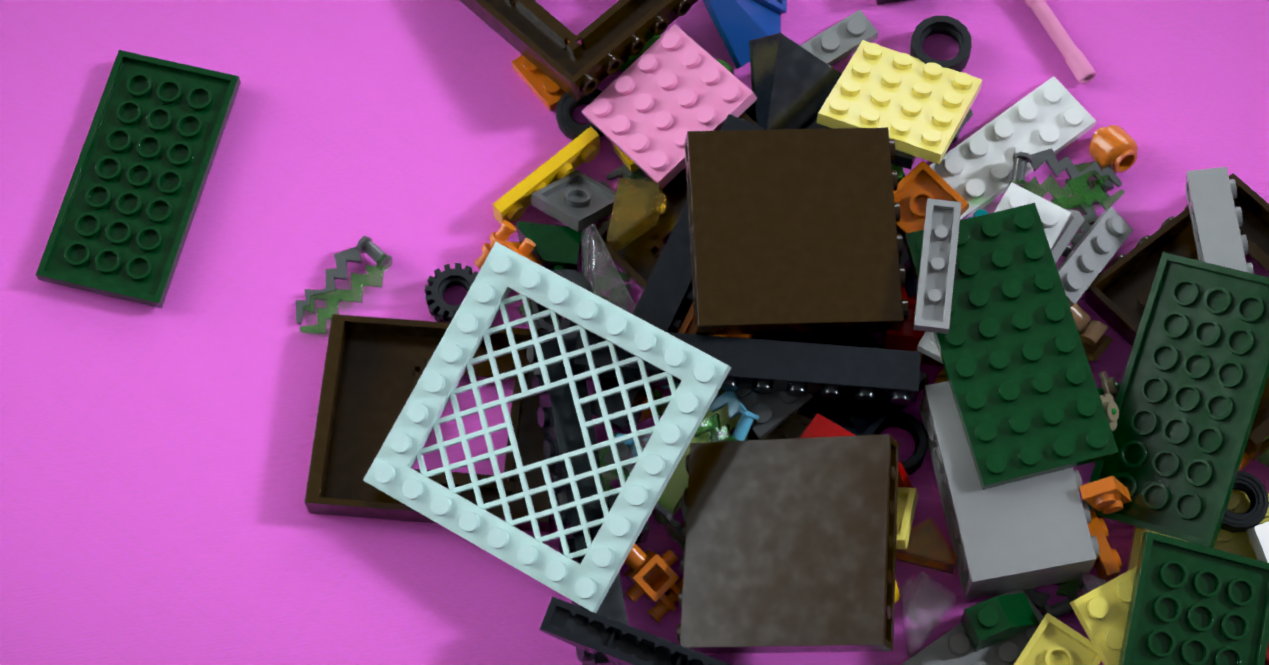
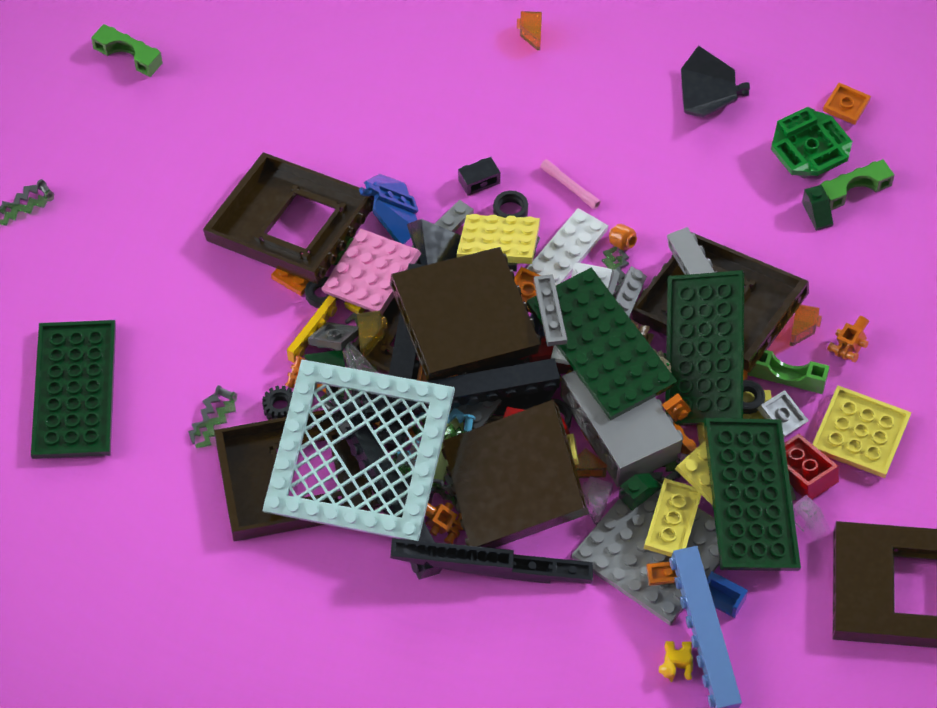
camera: 20 degrees left, 10 degrees down
(1077, 179) = (609, 256): piece -> none

